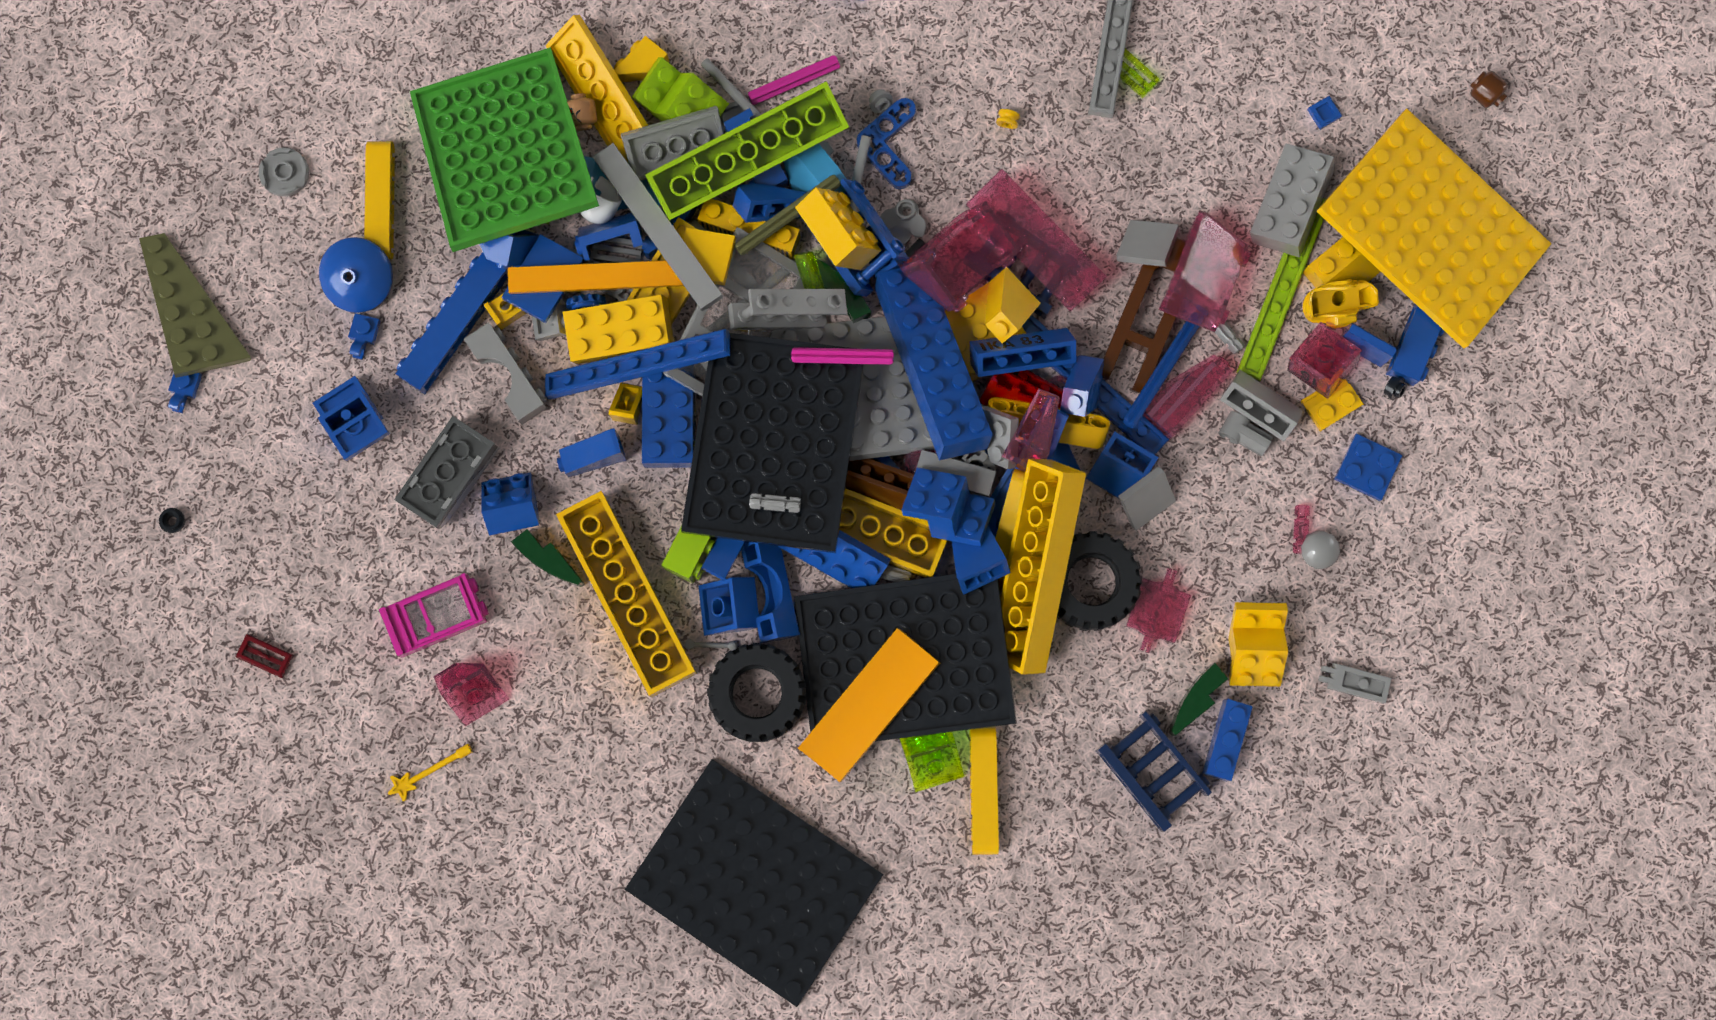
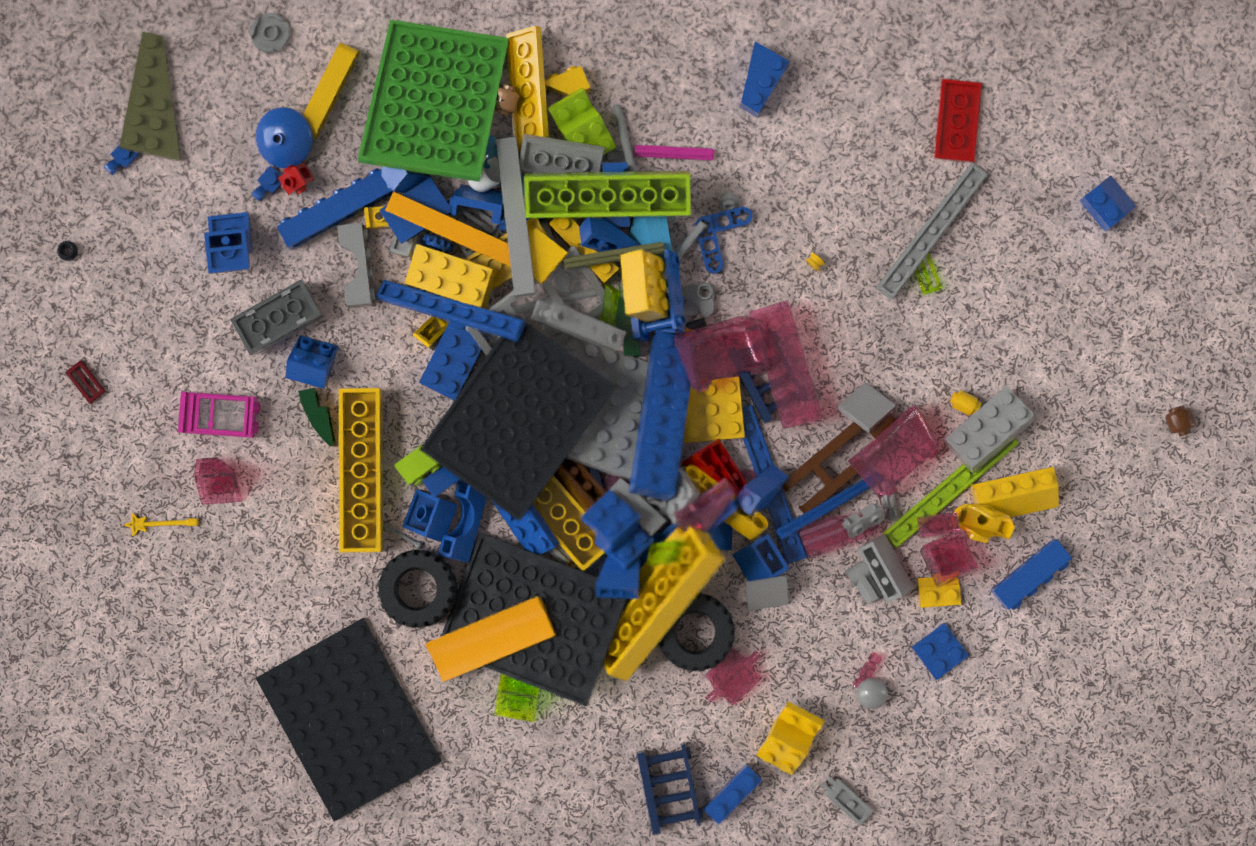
camera: 30 degrees right, 5 degrees up
(391, 311) = (296, 178): none -> red brick
(591, 454) = (387, 356): blue slope -> none
(775, 502) = (494, 464): light grey axle -> none
(842, 356) = (597, 382): dark pink axle -> none
(984, 791) = (541, 741): yellow beam -> none
(1008, 305) = (739, 403): yellow slope -> none
(1016, 508) = (664, 557): none -> clear neon green tile
(1023, 352) = (731, 443): blue brick -> none
(1197, 698) = (726, 753): dark green slope -> none
(1216, 354) = (871, 516): none -> light grey hinge
(1249, 186) = (965, 402): none -> yellow brick
(1292, 327) = (938, 524): none -> clear pink torso
(1324, 112) = (1050, 375): blue tile -> none
(1372, 347) = (985, 564): blue tile -> none
(1395, 387) = (990, 604): black plate -> none
(1434, 228) = (1081, 504): yellow plate -> none

